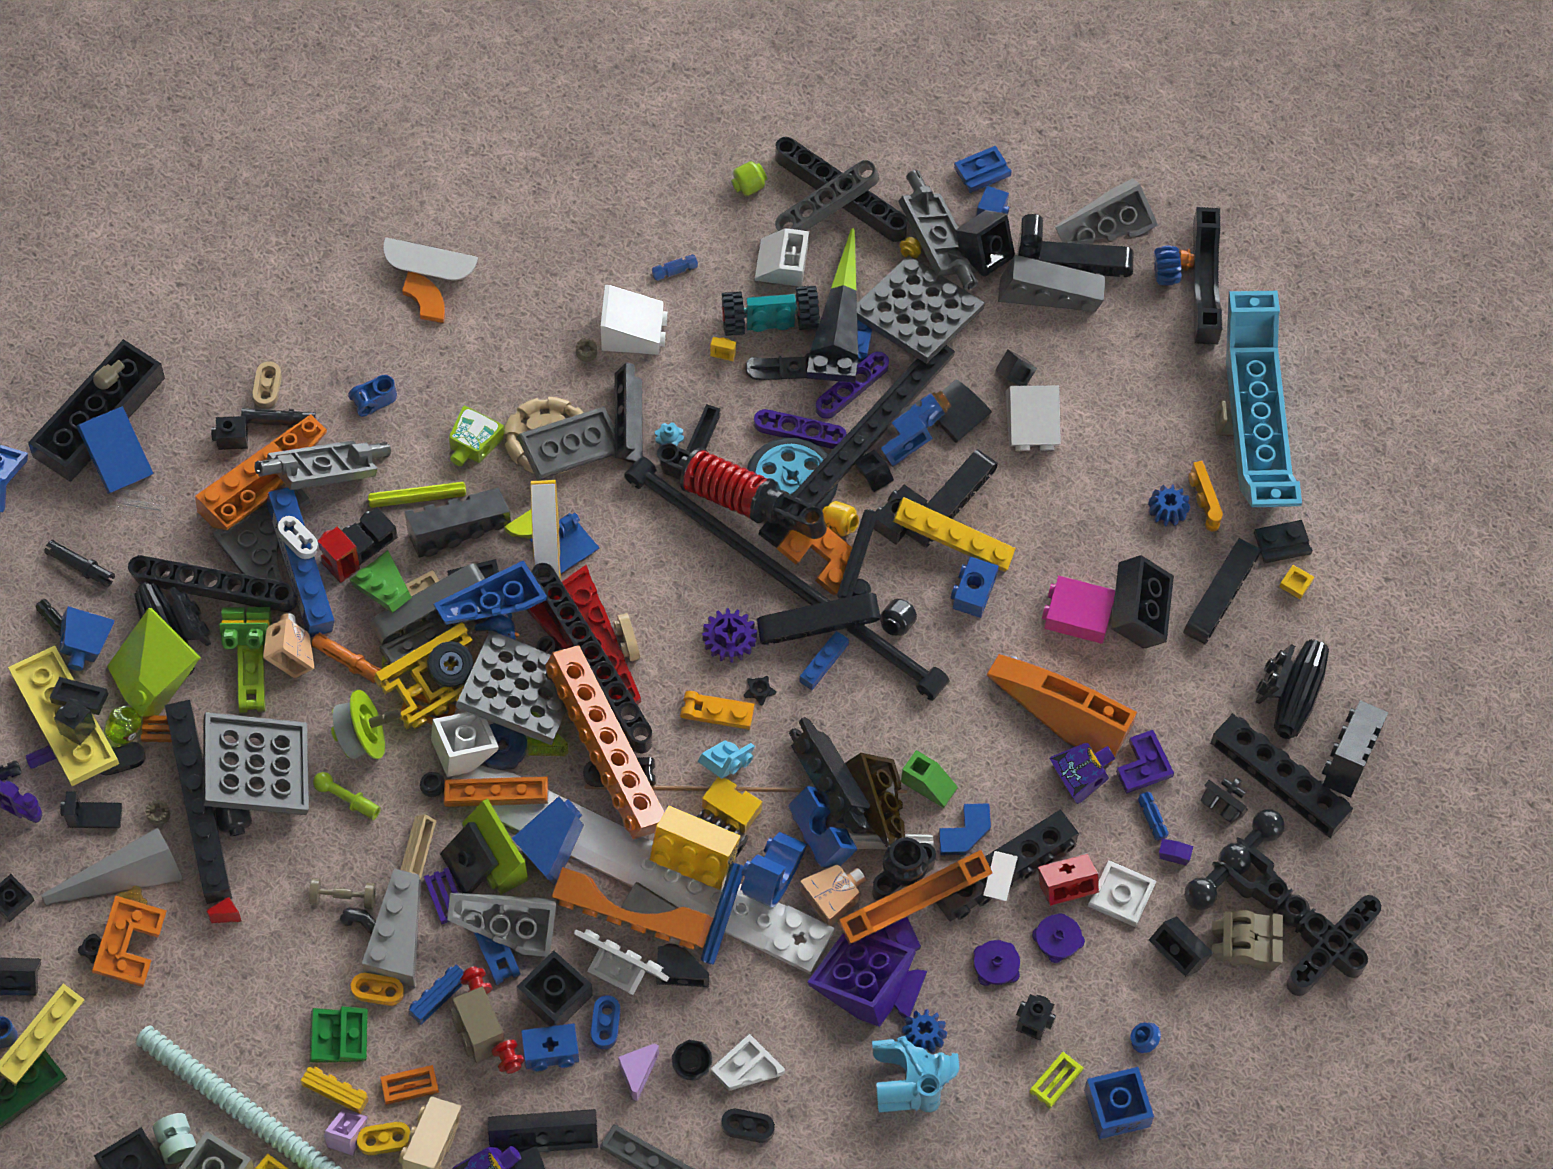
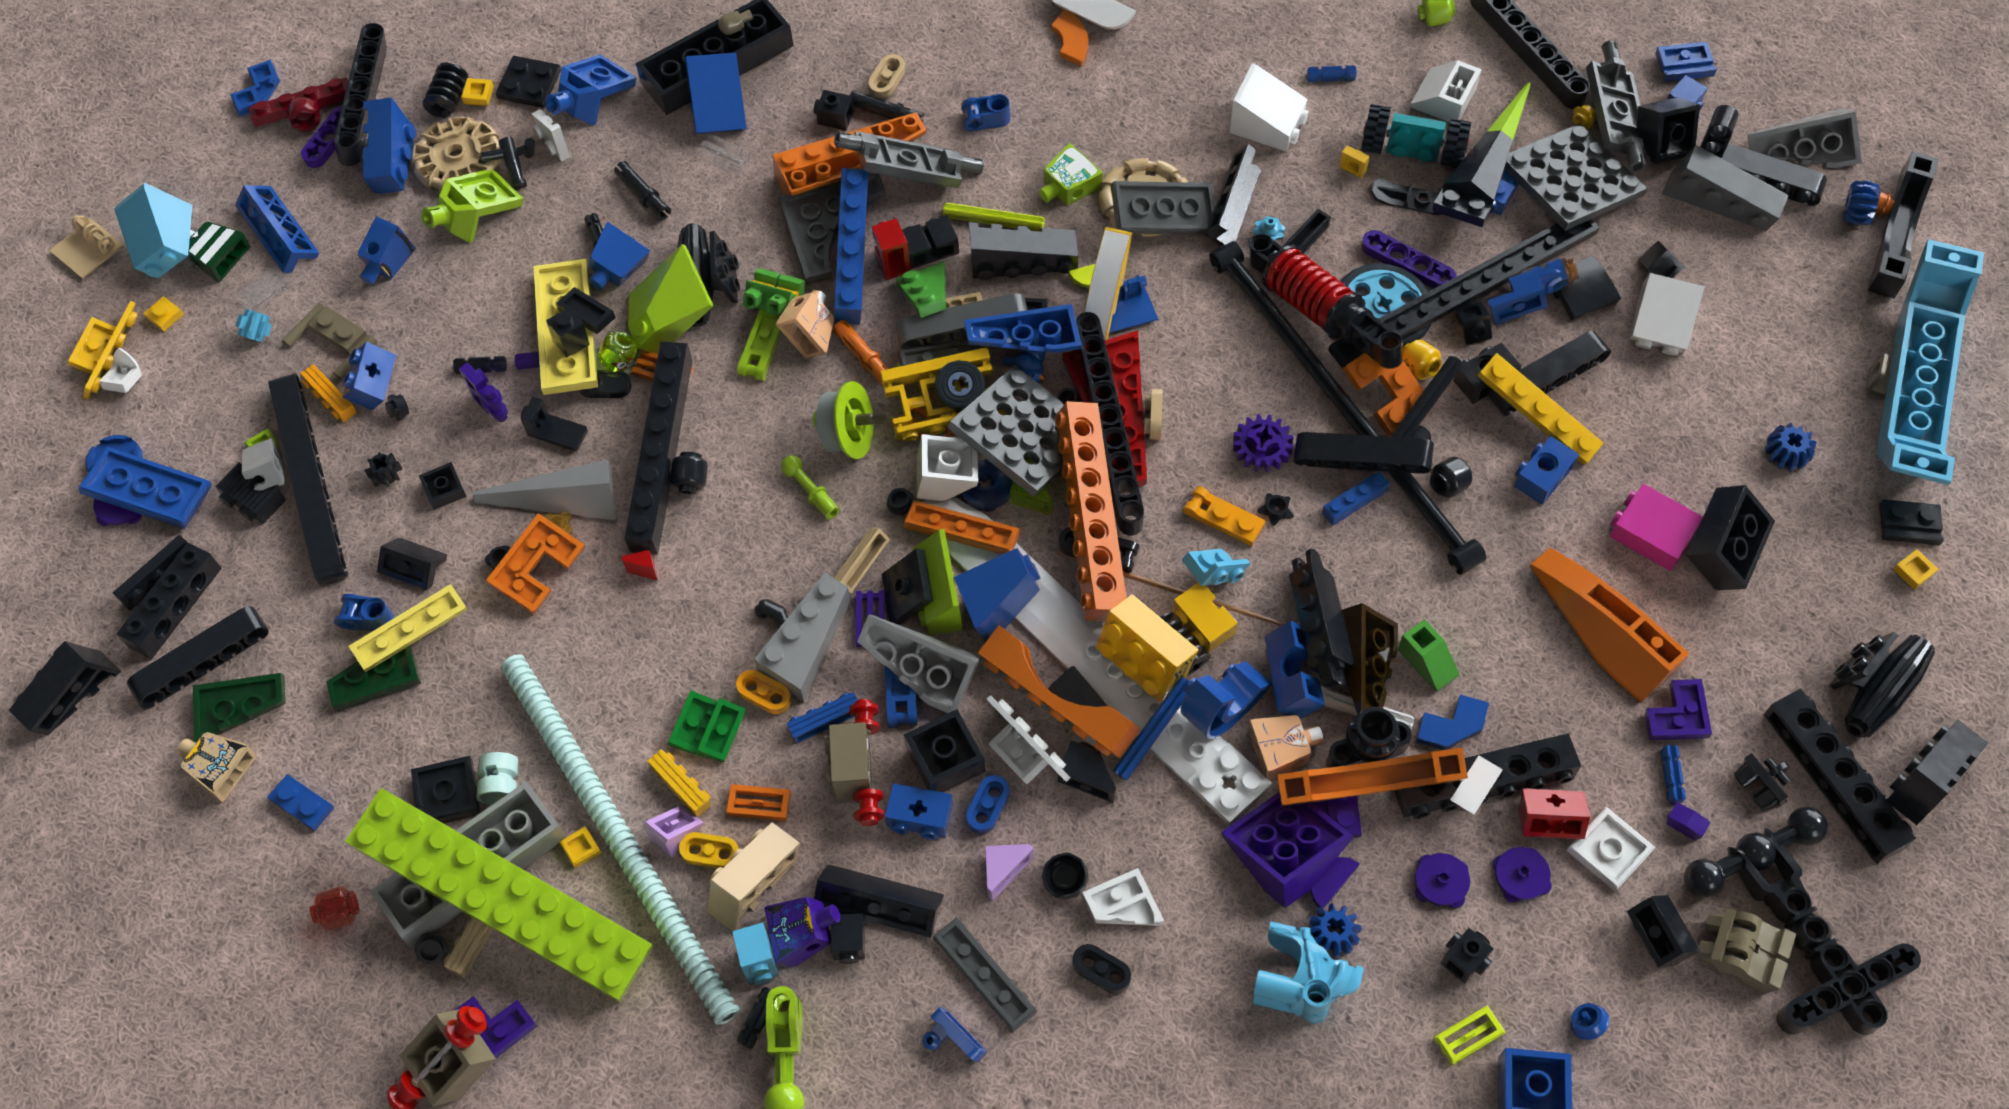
camera: 25 degrees right, 0 degrees up
(151, 808) = (614, 441): dark tan bush -> none
(221, 590) = (760, 243): black beam -> none
(243, 796) = (711, 431): piece -> none
(293, 541) = (847, 220): white beam -> none
(342, 893) = (741, 571): dark tan wheel -> none
(580, 346) = (1210, 122): dark tan bush -> none
(833, 189) = (1519, 35): dark grey beam -> none
(855, 388) = (1480, 236): dark purple beam -> none
(1082, 769) = (1607, 698): dark purple torso -> none
(1206, 496) = (1836, 448): light orange plate -> none
(1222, 590) = (1825, 553): black beam -> none

